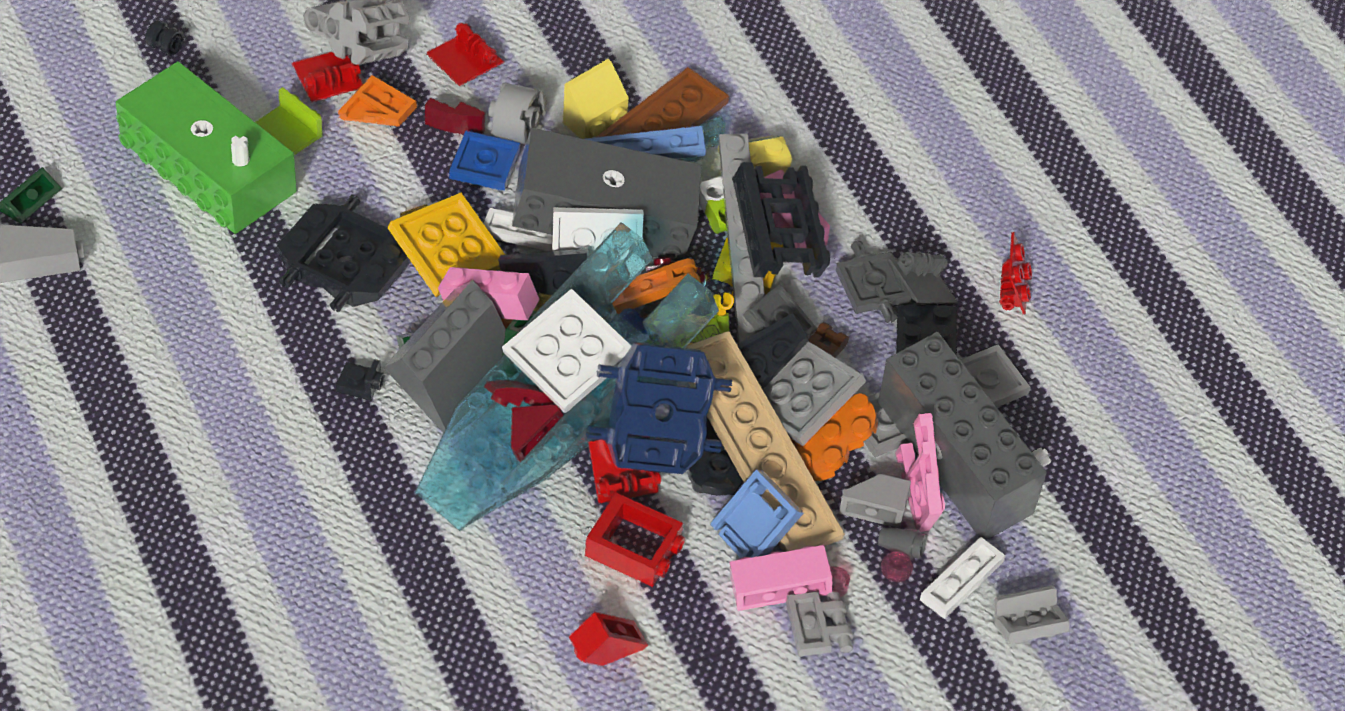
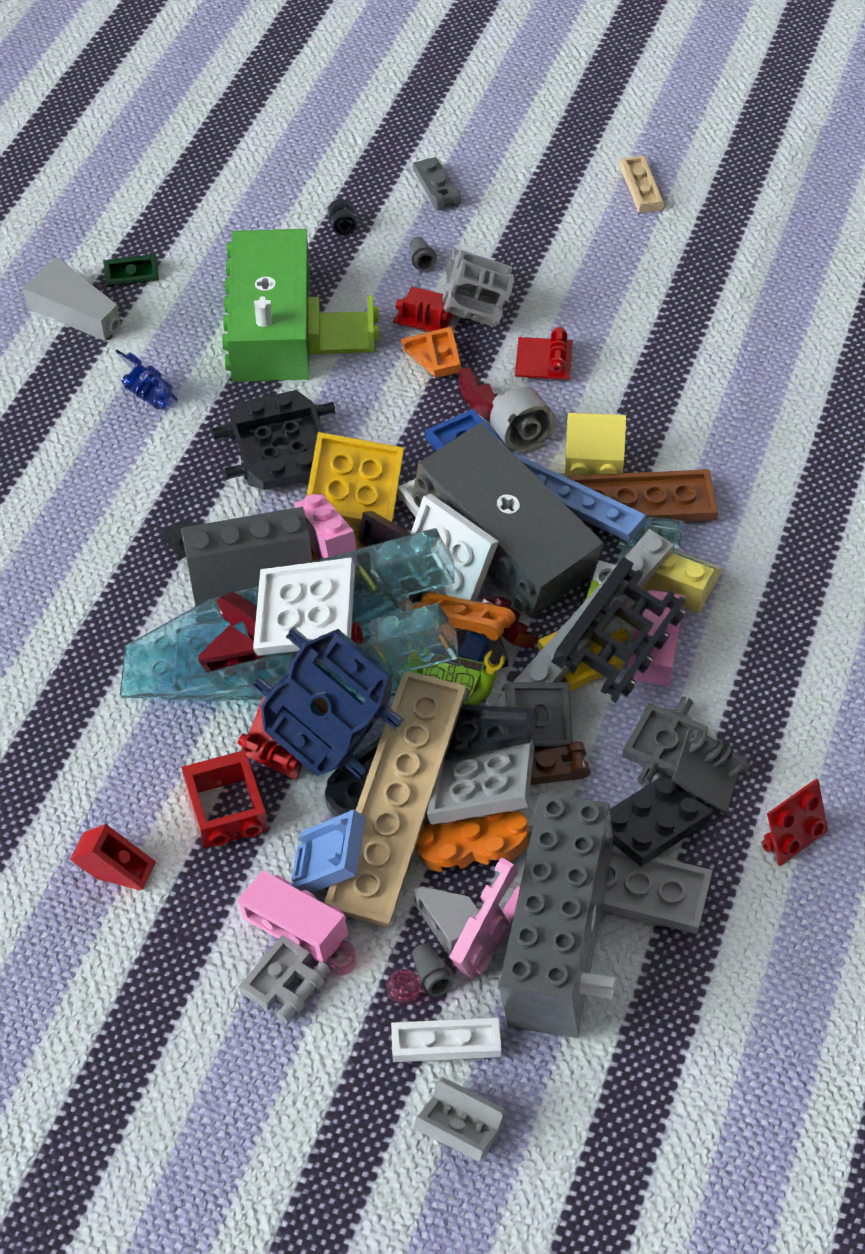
camera: 50 degrees right, 0 degrees up
(189, 269) = (146, 382): none -> clear blue hinge
(269, 29) = (422, 255): none -> dark grey cone

